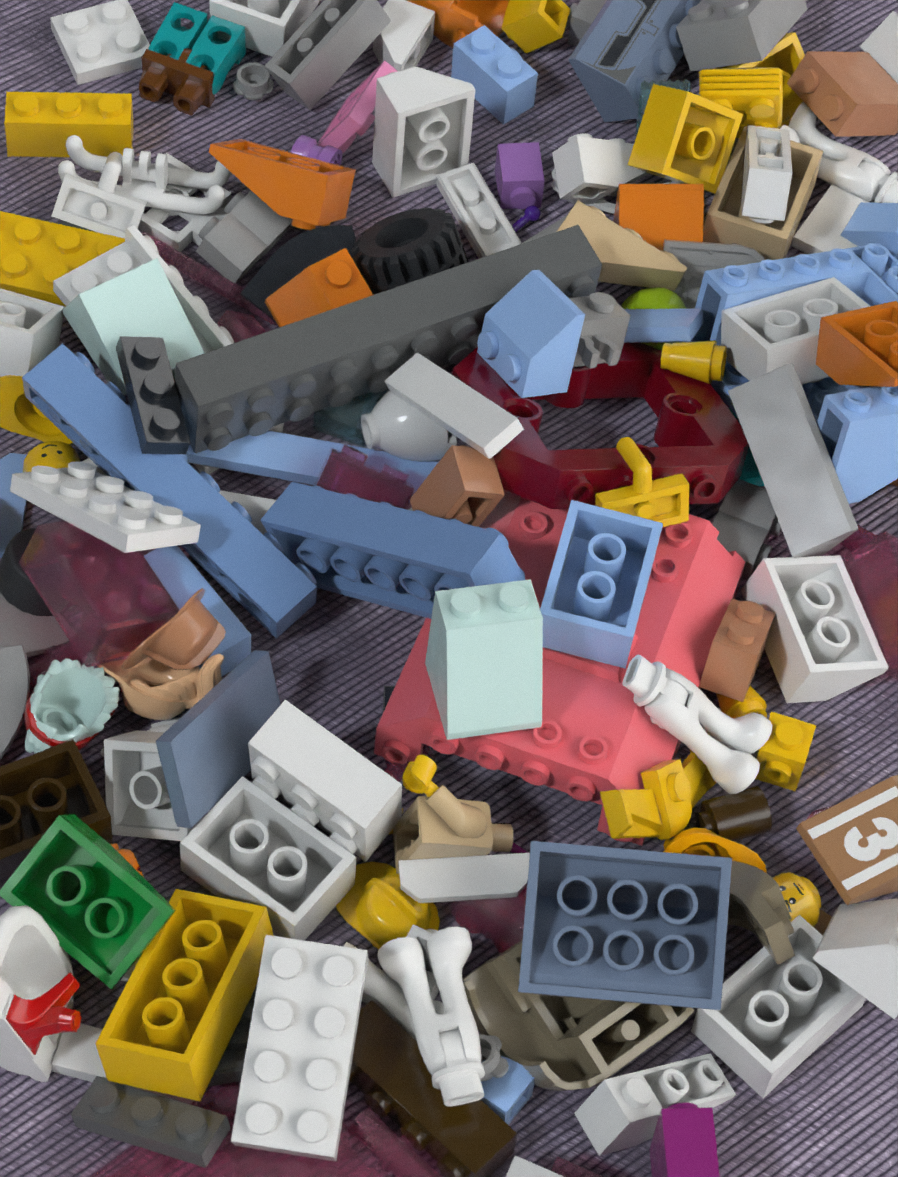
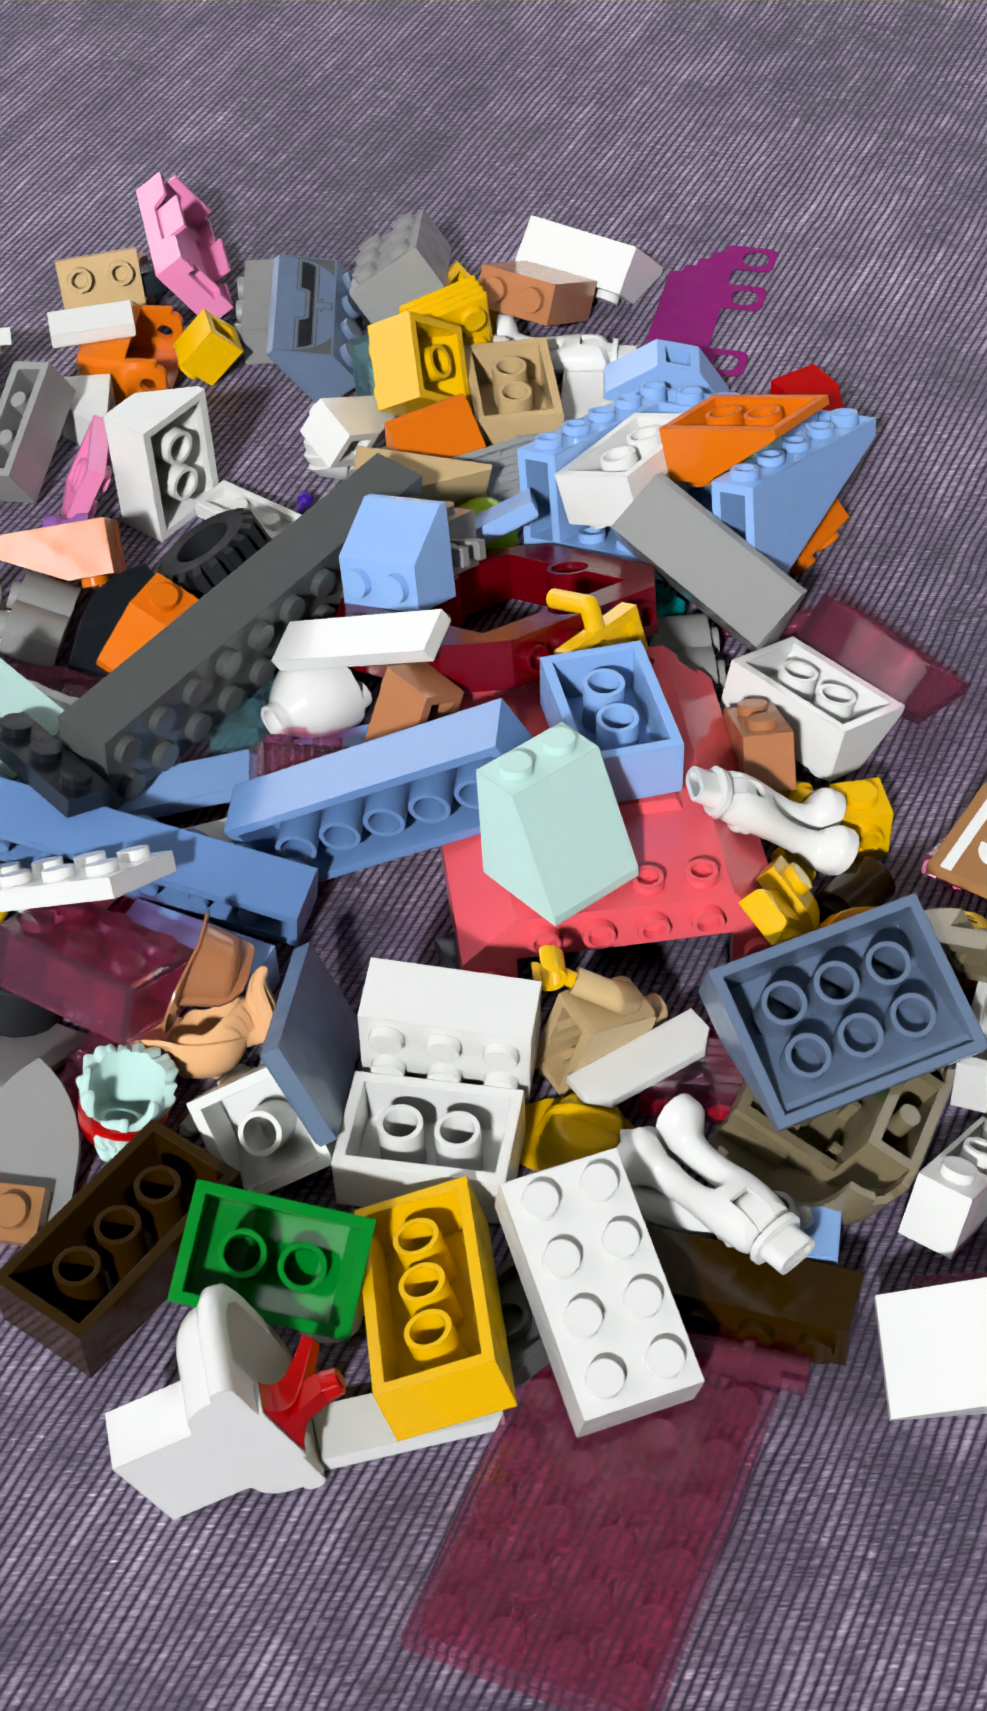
camera: 20 degrees left, 10 degrees down
(151, 1121) = (472, 1458): dark grey plate -> none
(498, 73) = (223, 398): light blue brick -> none
(519, 175) = (274, 470): medium lavender brick -> none
(696, 360) = (552, 531): yellow cone -> none
(766, 174) = (514, 366): white slope -> none

